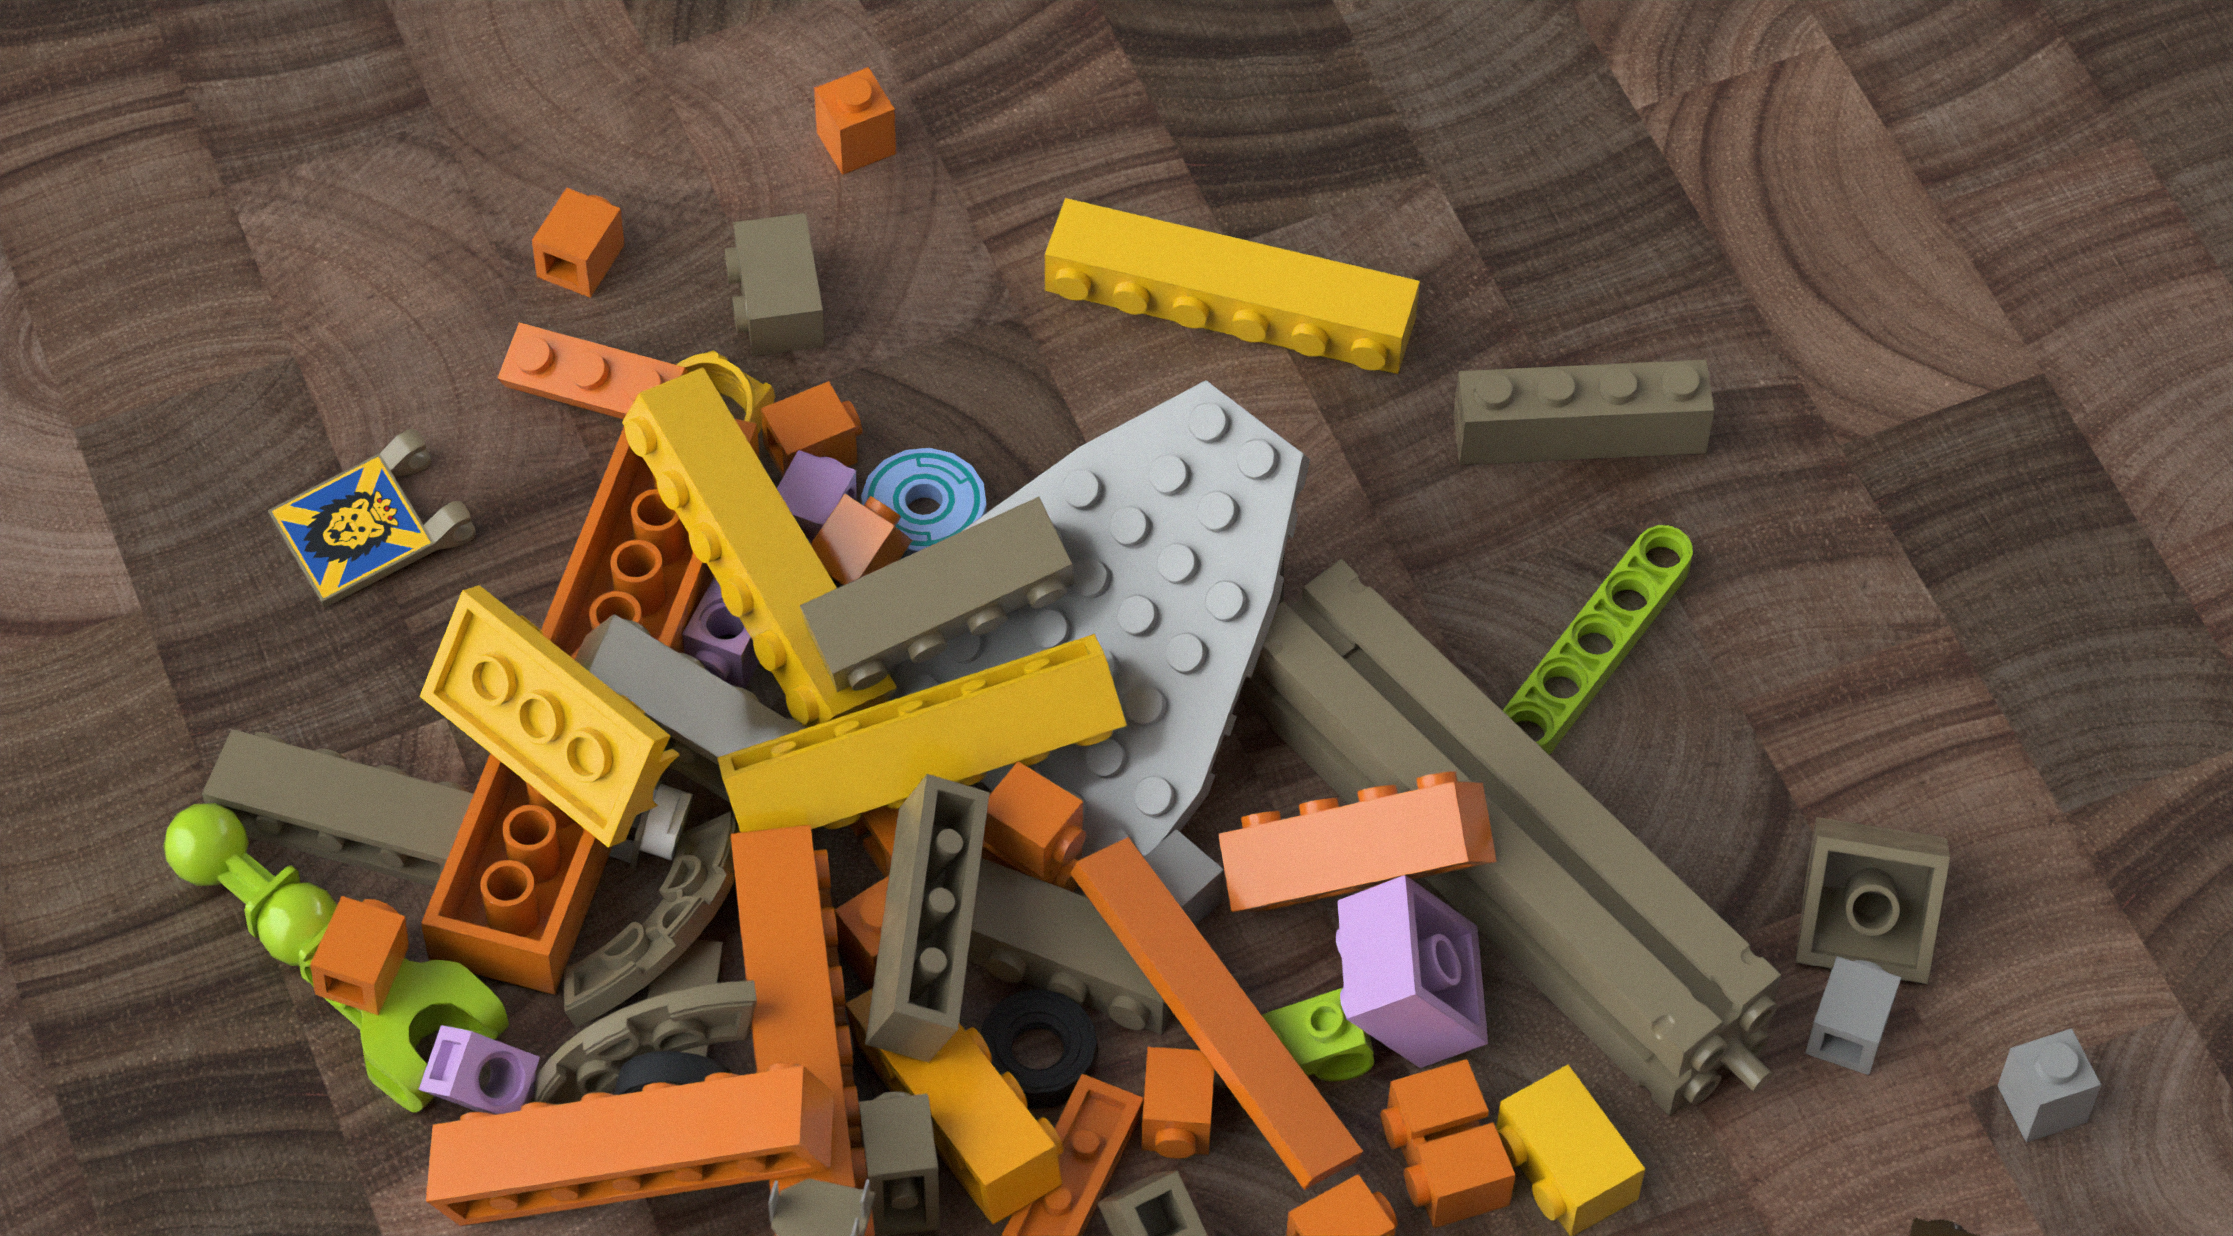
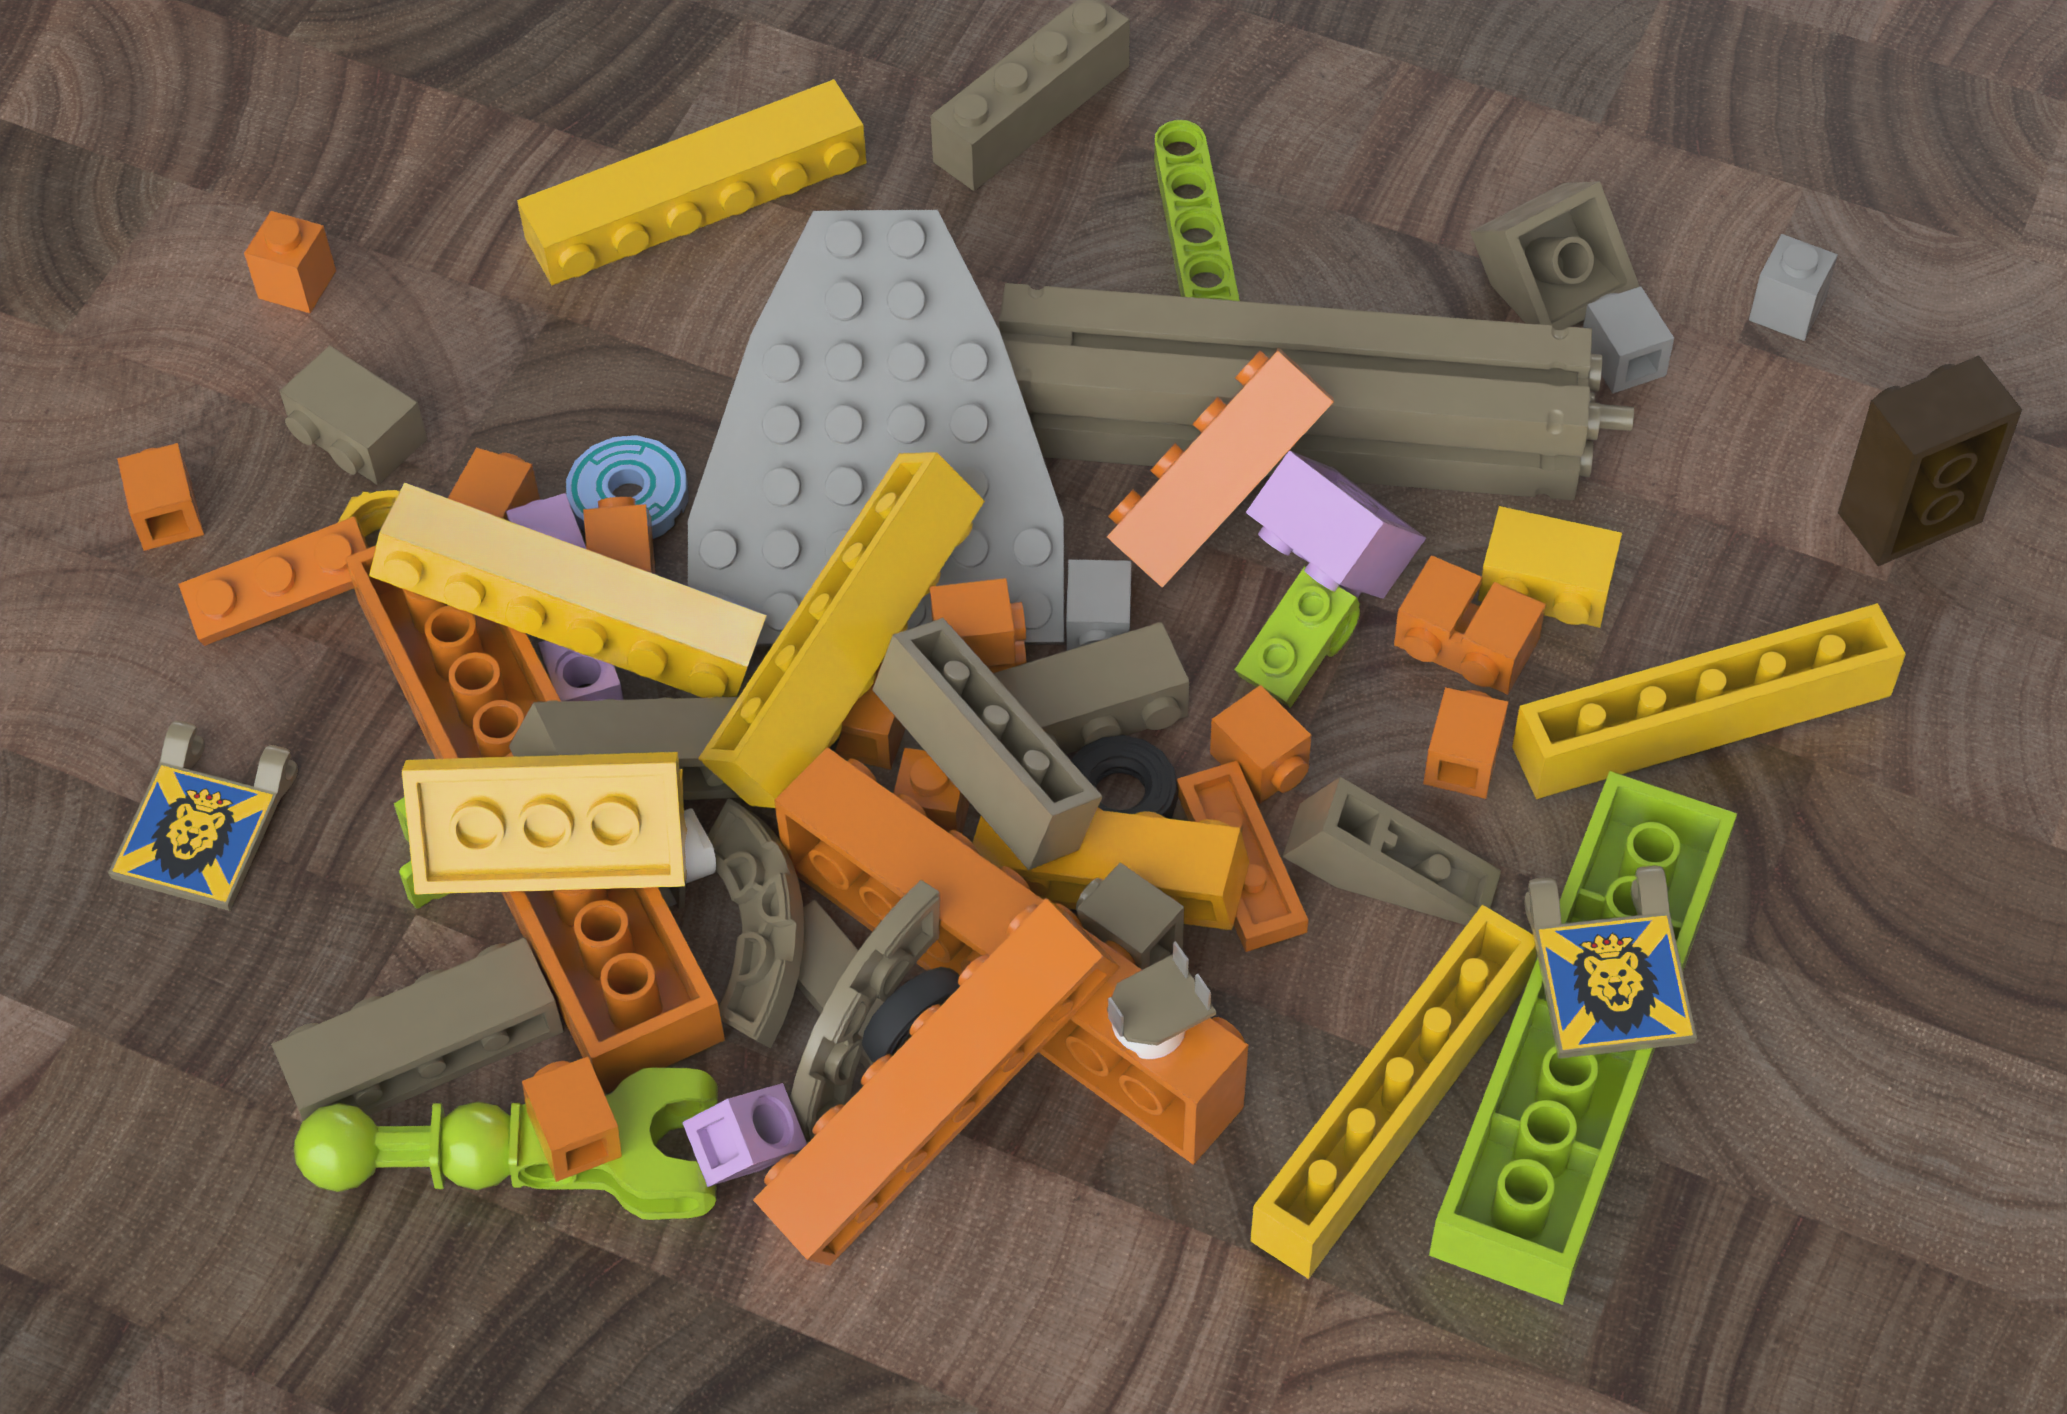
camera: 40 degrees left, 0 degrees up
(939, 595) = (753, 513): dark tan brick -> none
(1216, 1013) = (1236, 656): orange tile -> none

